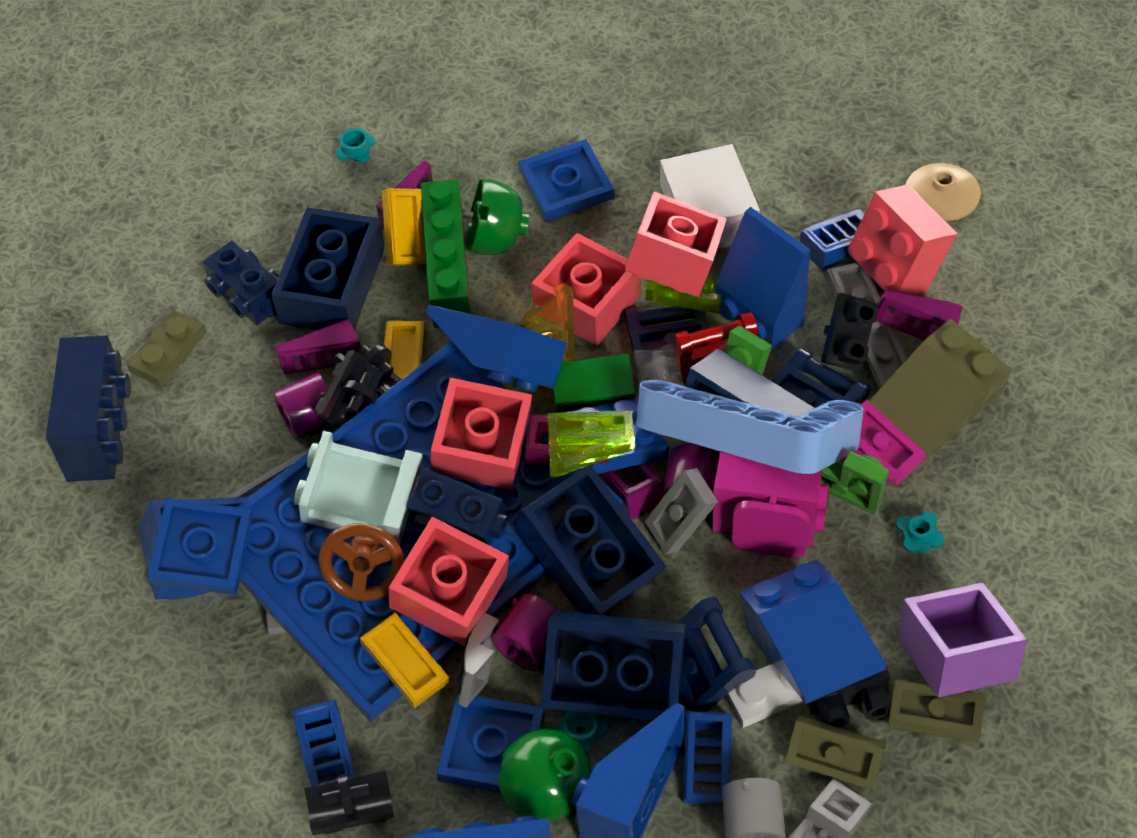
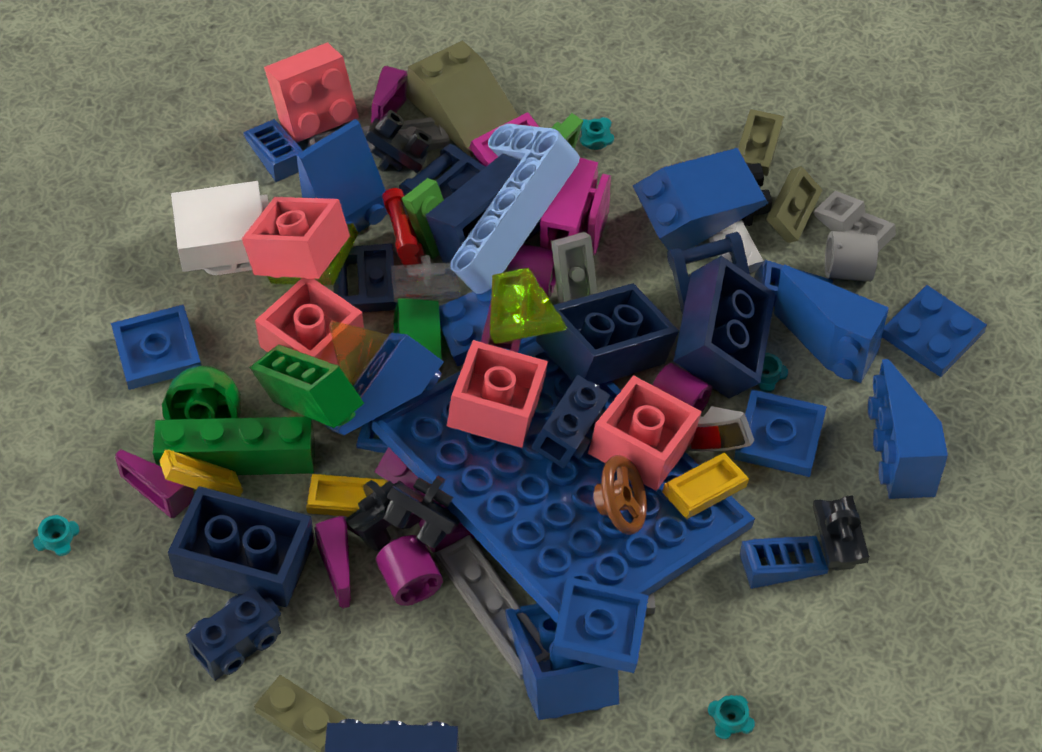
camera: 90 degrees left, 0 degrees up
(136, 695) = (733, 705): none -> teal plate
(357, 487) = (543, 494): light aqua panel -> none
(480, 276) = (307, 386): none -> green brick
(543, 773) = (818, 381): green cylinder -> none
(946, 189) = (233, 76): tan dish -> none
(961, 639) = (712, 107): medium lavender piece -> none

